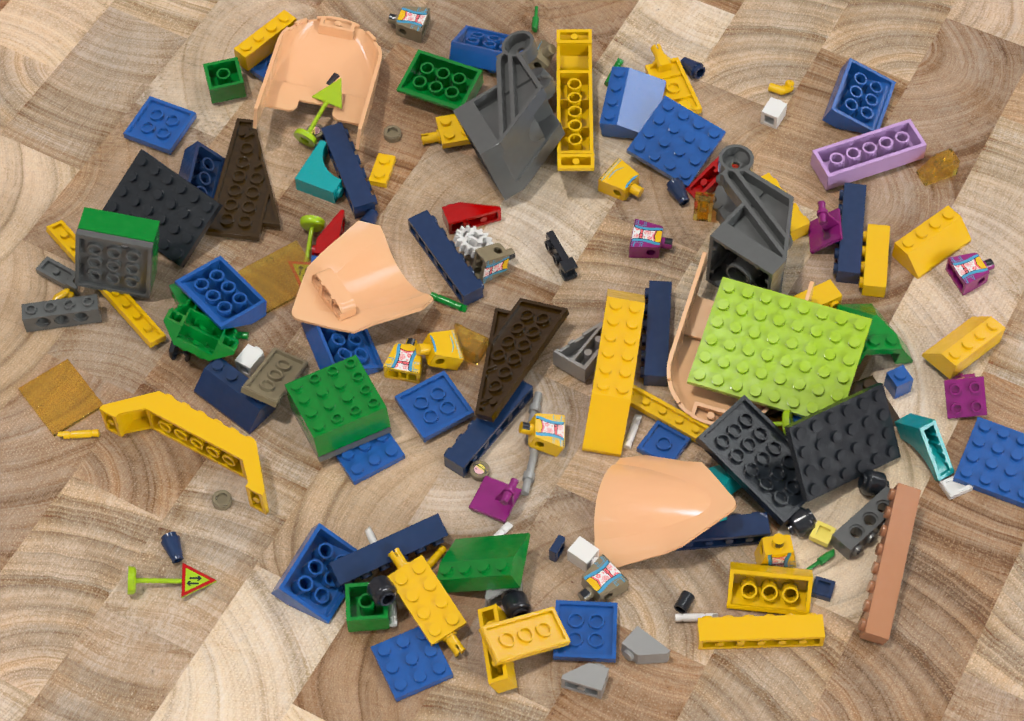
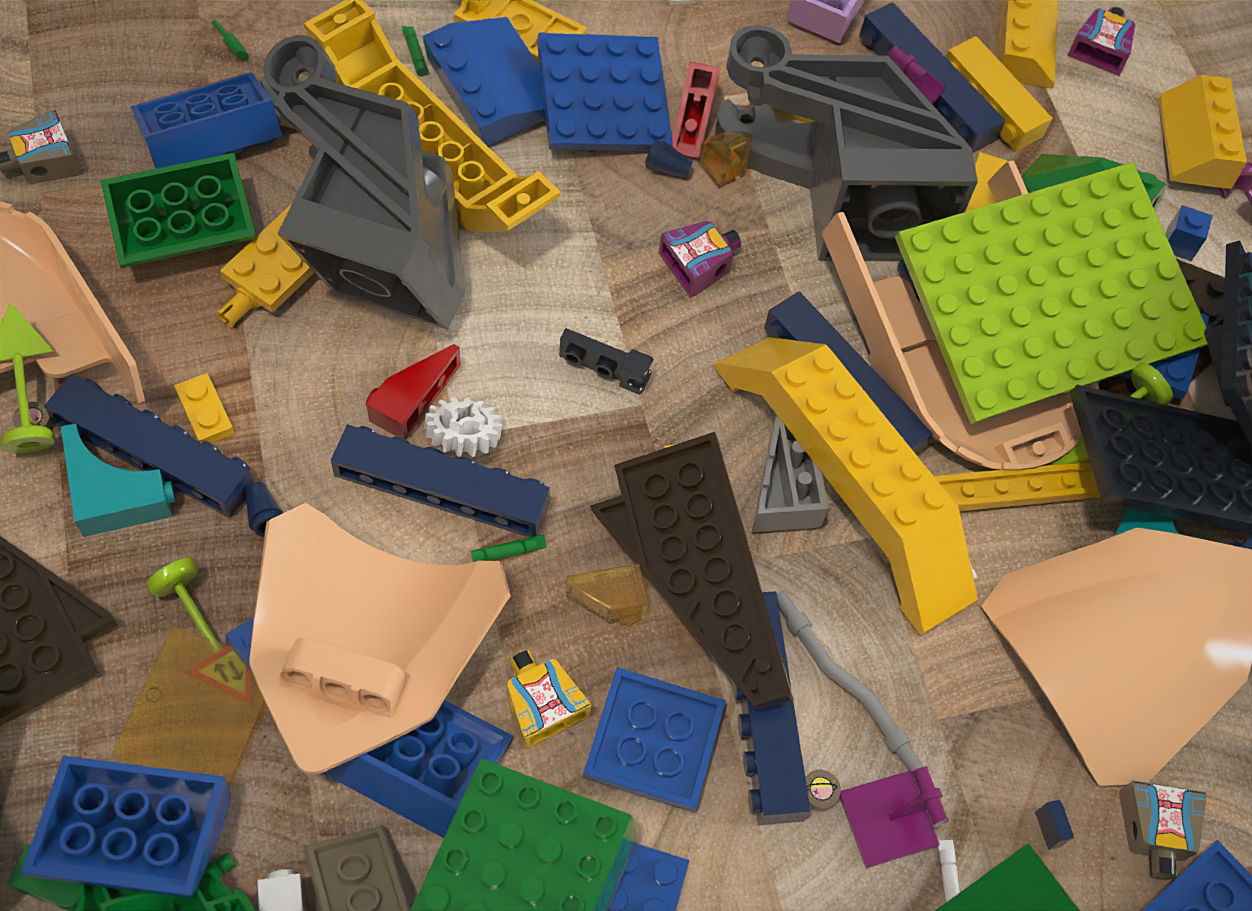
camera: 50 degrees left, 5 degrees up
(330, 233) = (228, 582): red slope -> none
(392, 134) = (167, 341): dark tan tile -> none
(441, 350) = (585, 637): yellow torso -> none
(491, 261) = (525, 427): dark tan torso -> none
(545, 433) = (863, 651): torso -> none
(582, 554) = (1097, 802): white brick -> none
(620, 181) = (581, 195): yellow torso -> none
(663, 442) = (1010, 537): blue tile -> none

